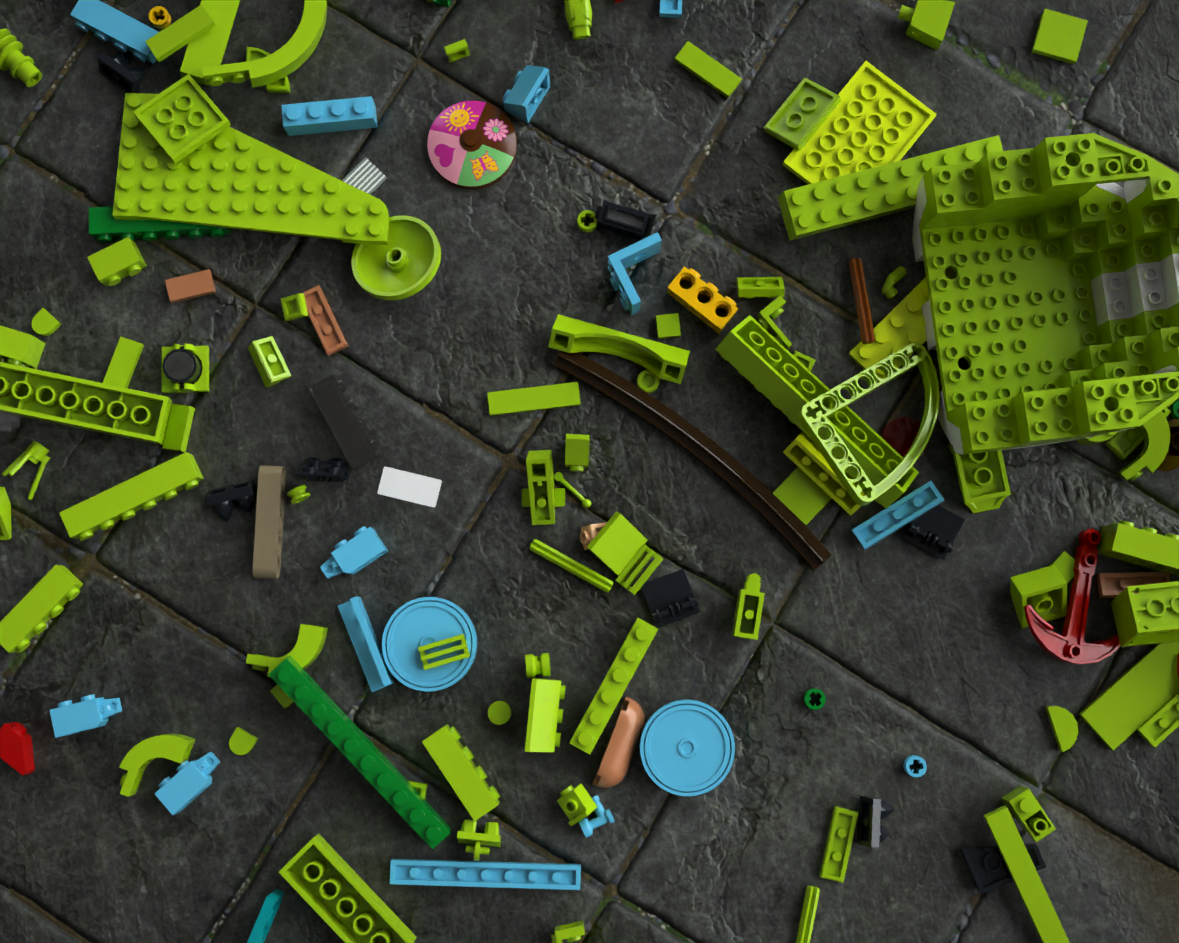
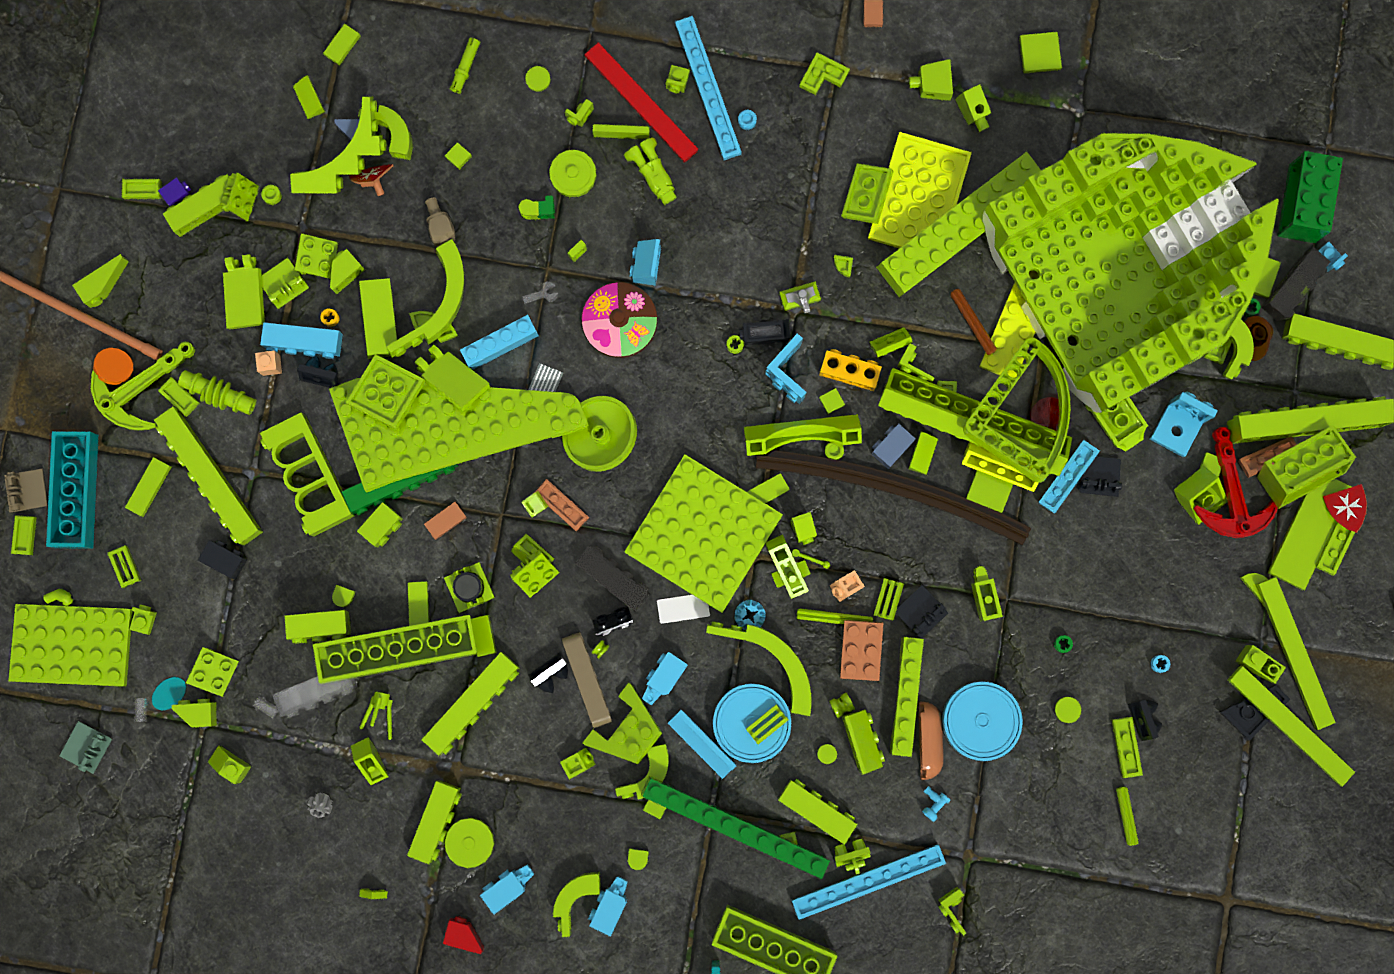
camera: 20 degrees left, 0 degrees up
(60, 122) = (286, 433): none -> lime fence
(65, 647) = (469, 842): none -> lime wheel
(72, 39) = (268, 363): none -> light nougat brick
(180, 33) = (356, 325): lime tile -> none
(221, 609) = (578, 763): none -> lime bracket
(260, 133) = (452, 378): none -> lime tile
(260, 382) = (534, 574): none -> lime hinge
(293, 603) = (634, 734): none -> lime wing
(400, 83) = (542, 294): none -> clear bar
(465, 413) = (703, 533): none -> lime plate
(486, 532) = (753, 606): none -> medium azure gear
(495, 577) = (795, 671): none -> lime arch
(576, 803) = (915, 798): lime brick -> none
(585, 613) = (861, 650): none -> nougat plate
(617, 543) = (864, 586): lime tile -> none
(681, 198) = (800, 297): none -> piece
(708, 69) = (779, 187): lime tile -> none
(715, 401) = (892, 446): none -> sand blue brick
(743, 182) = (843, 264): none -> lime tile
(745, 424) = (923, 453): none -> lime slope
(789, 774) = (1067, 709): none -> lime piece
(891, 280) = (989, 296): lime arm -> none
(960, 65) = (973, 101): none -> lime torso
(1061, 501) = (1186, 414): none -> medium azure bracket
(1074, 818) = (1295, 653): none -> lime tile

